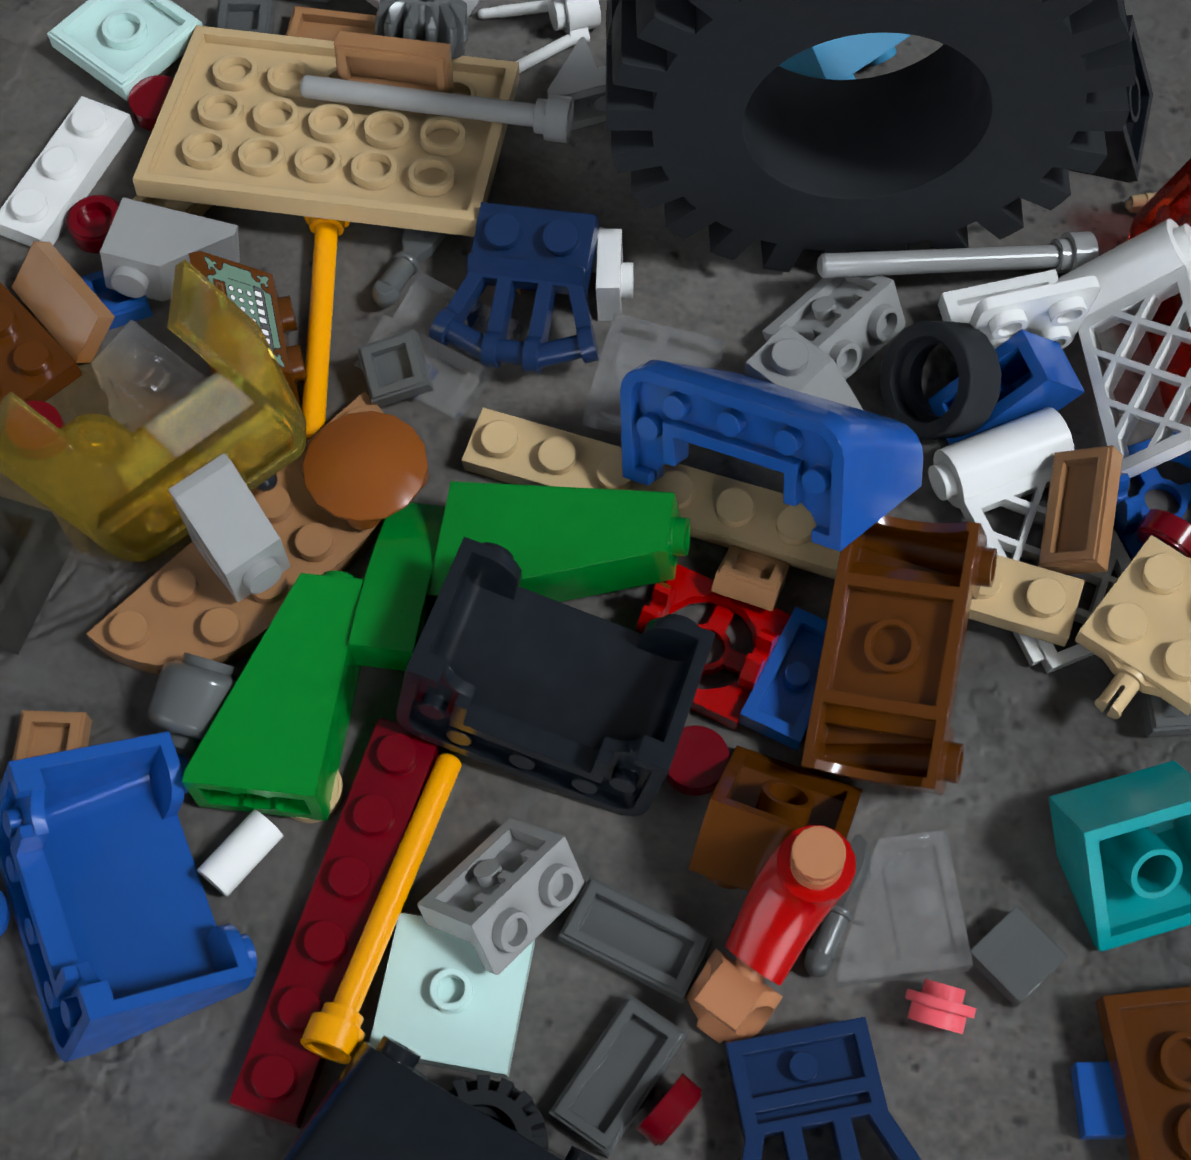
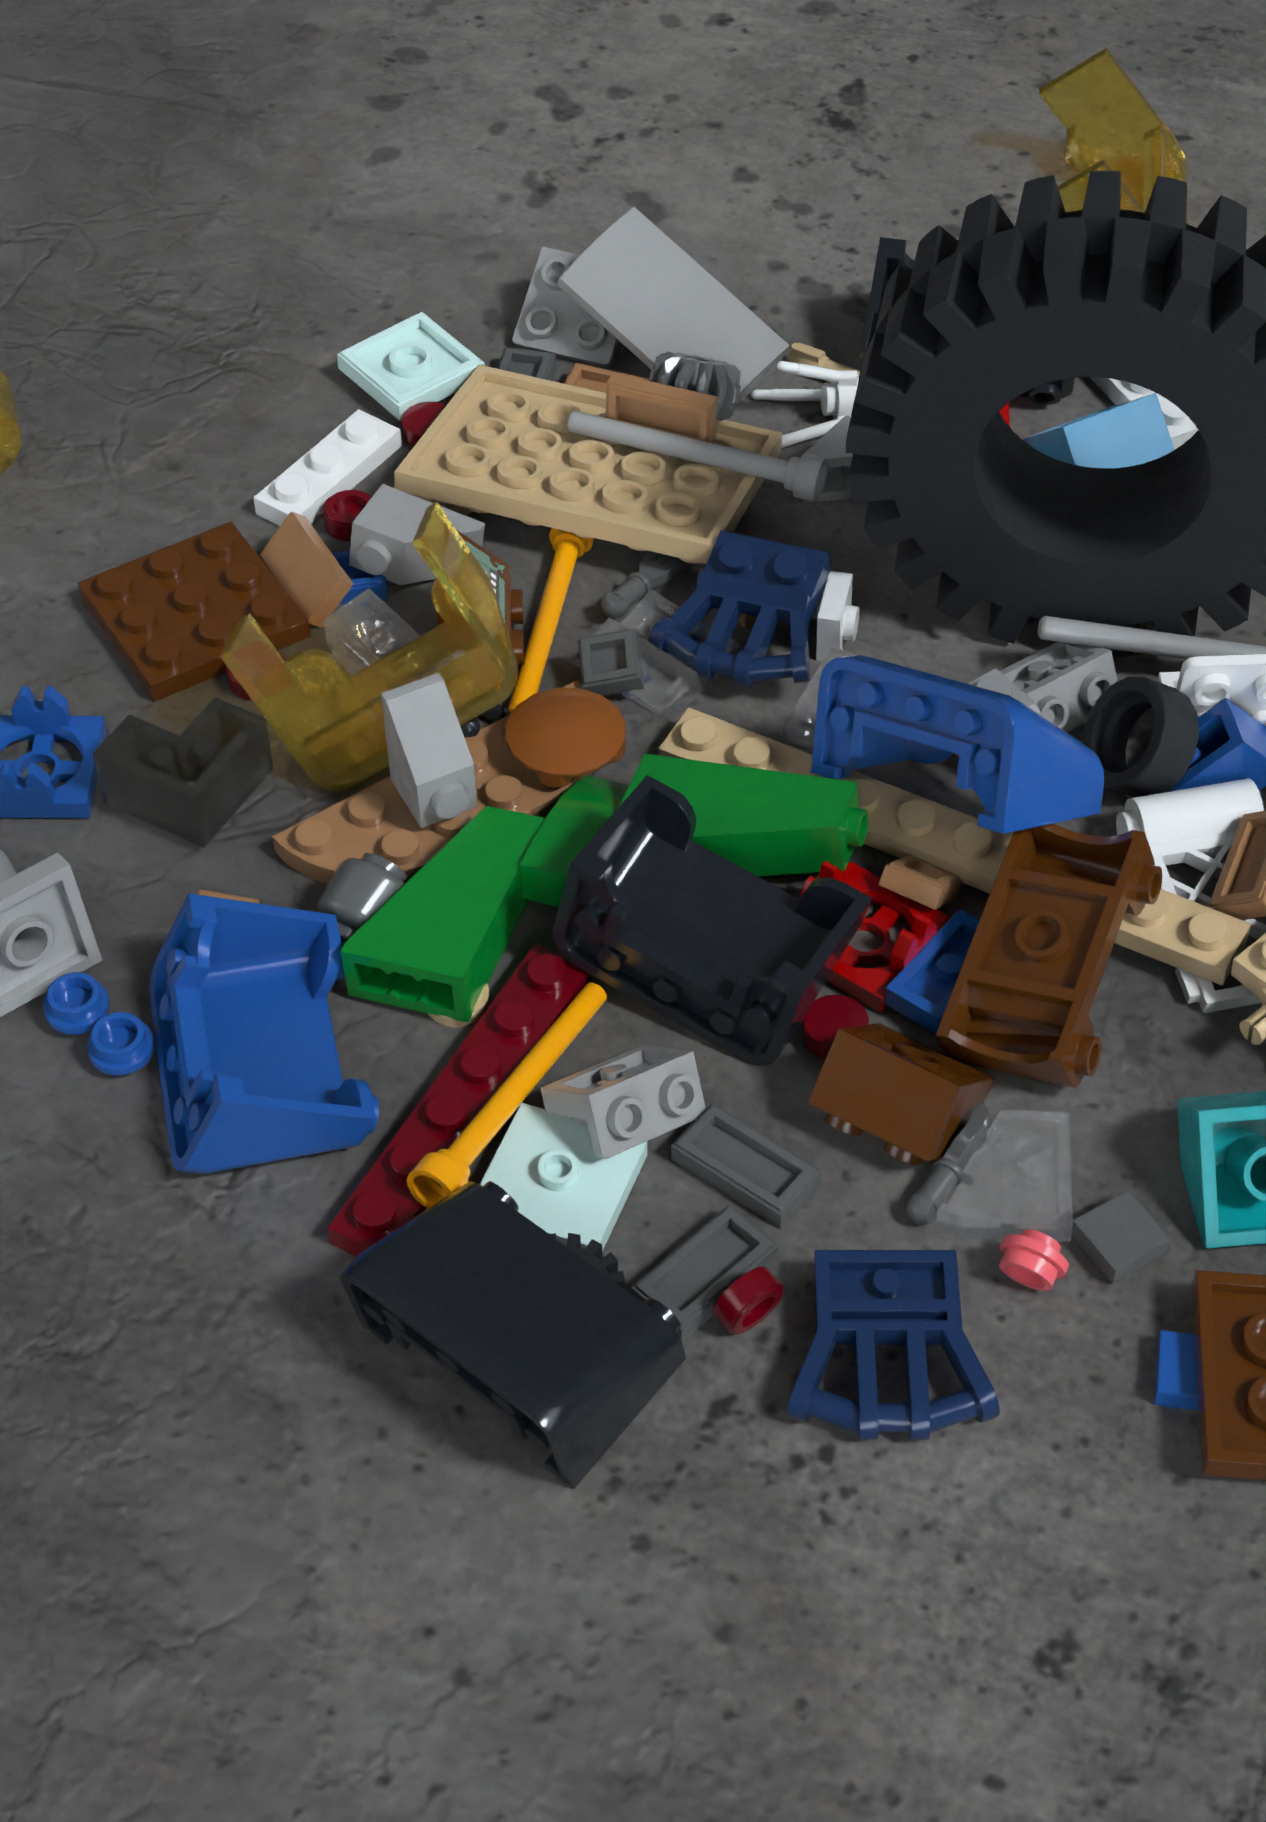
camera: 10 degrees right, 15 degrees down
(240, 852) = (380, 1034): white piece -> none
(774, 924) = (880, 1149): piece -> none

